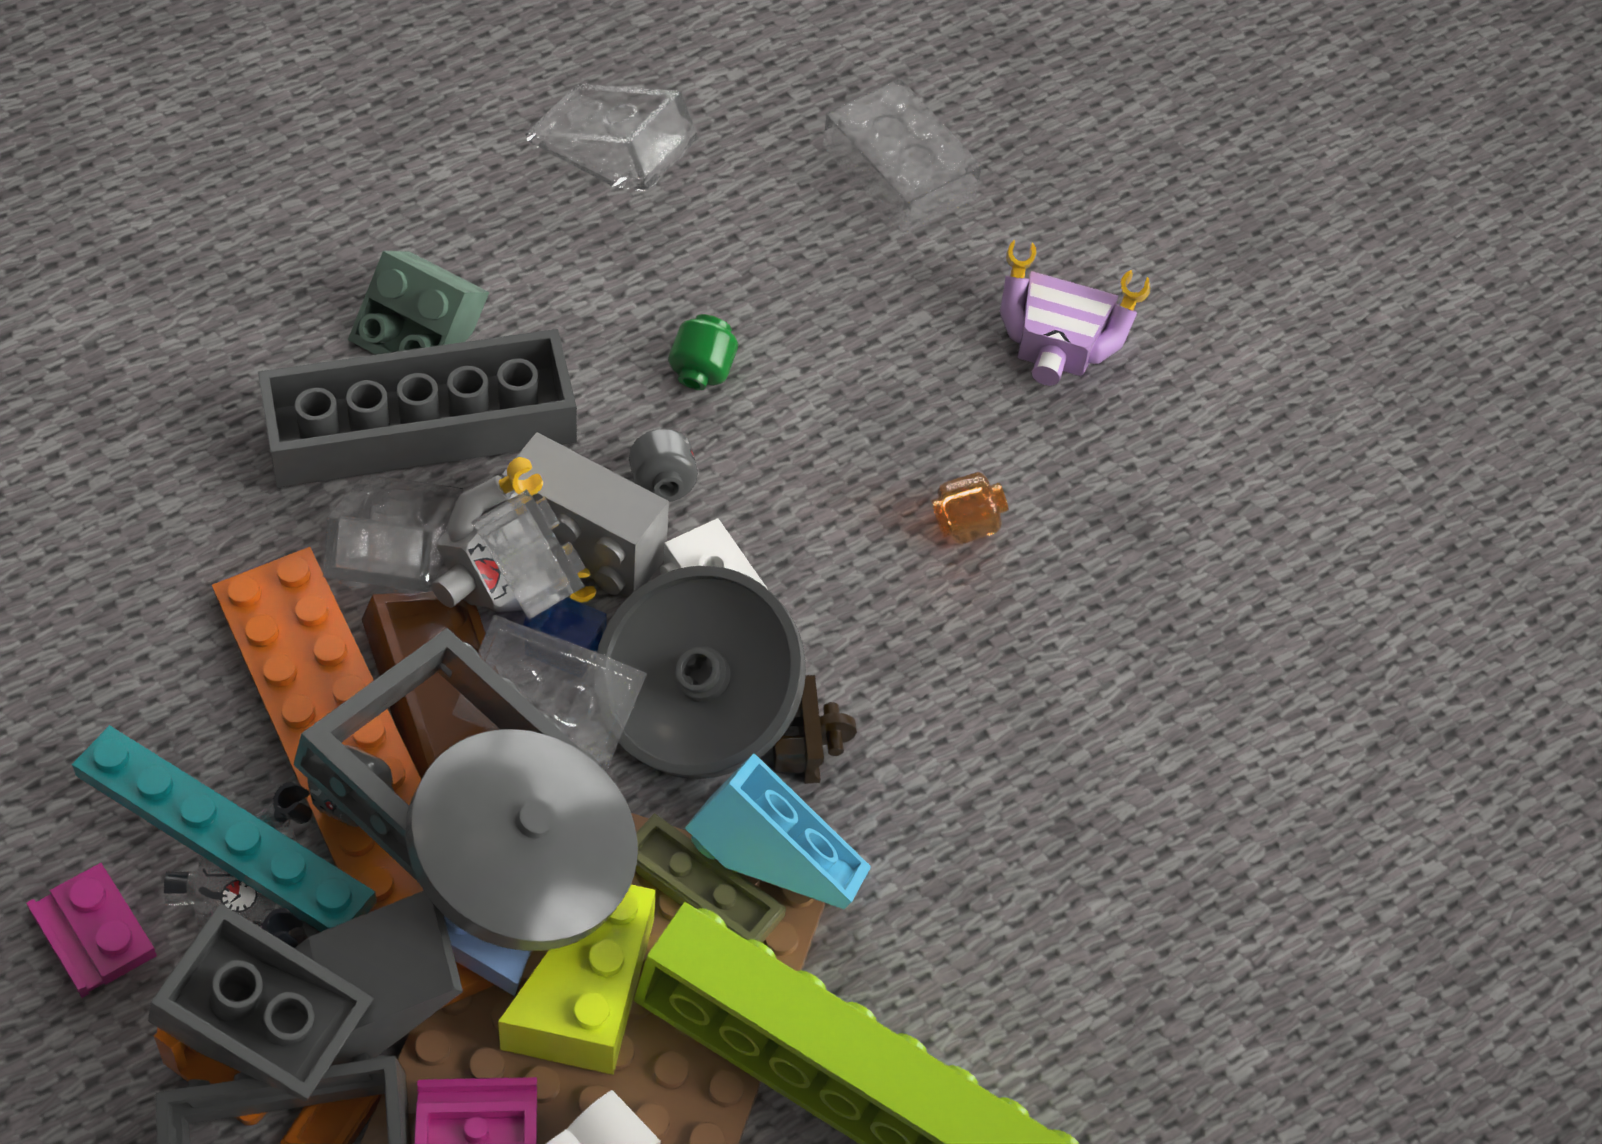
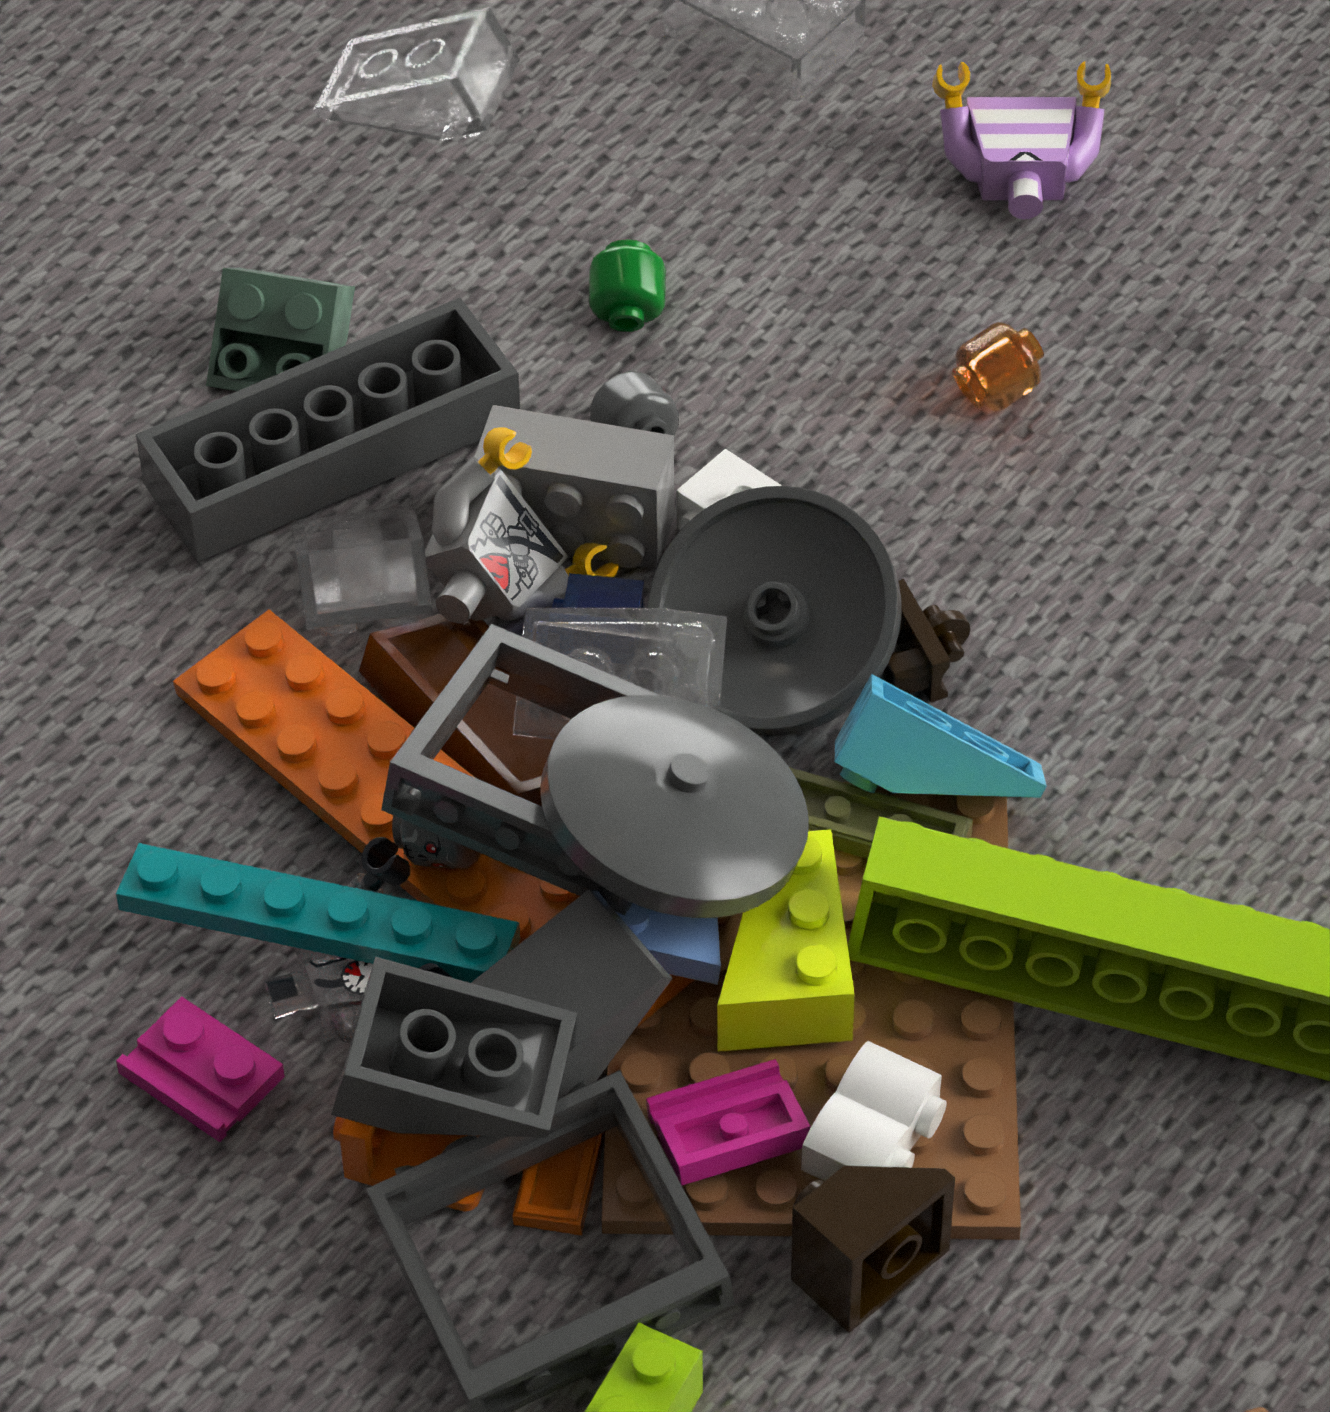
camera: 10 degrees left, 5 degrees down
(528, 552) = (541, 531): clear brick -> none

